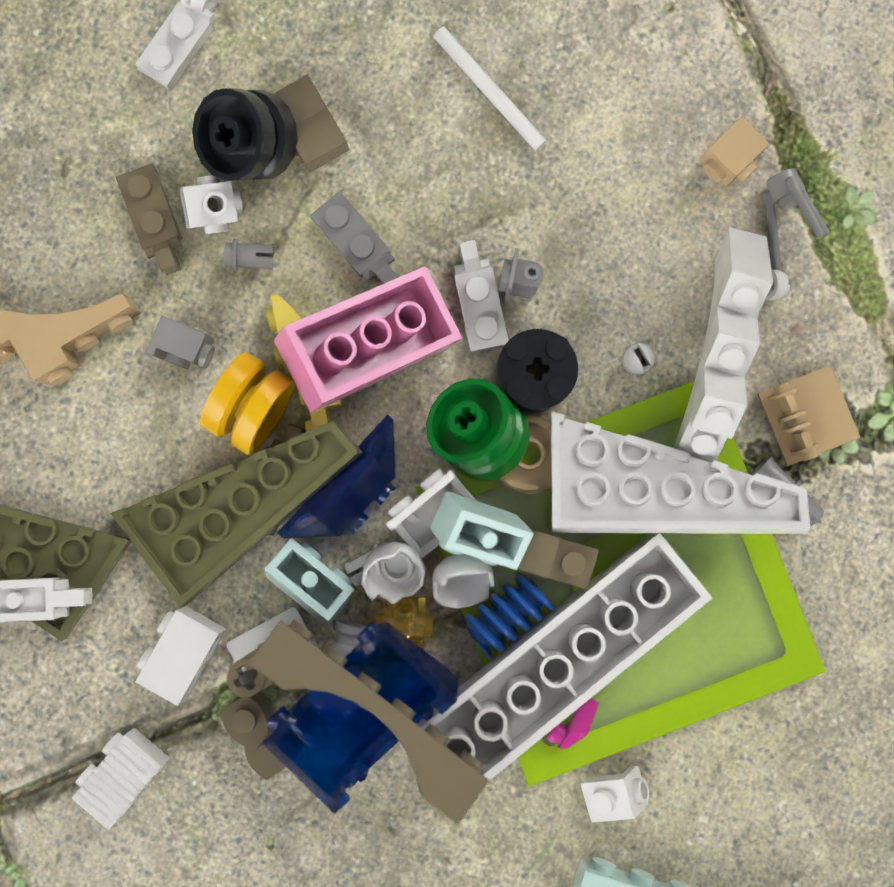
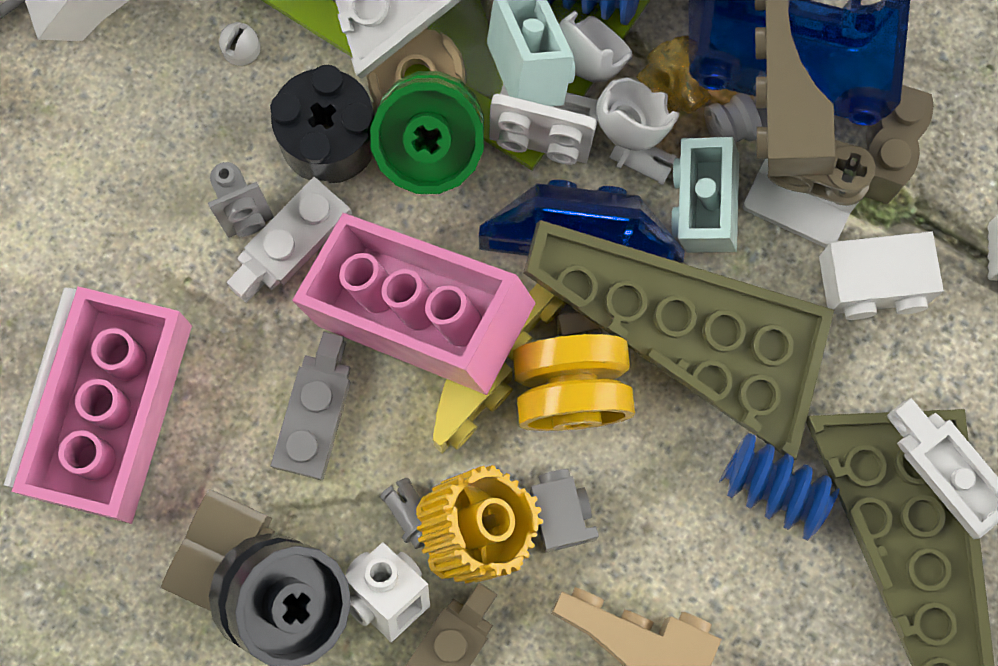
camera: 125 degrees left, 10 degrees down
(100, 488) = (779, 486): none -> blue piece
(204, 283) = (477, 525): none -> yellow brick
(444, 110) = (103, 405): none -> bright pink brick

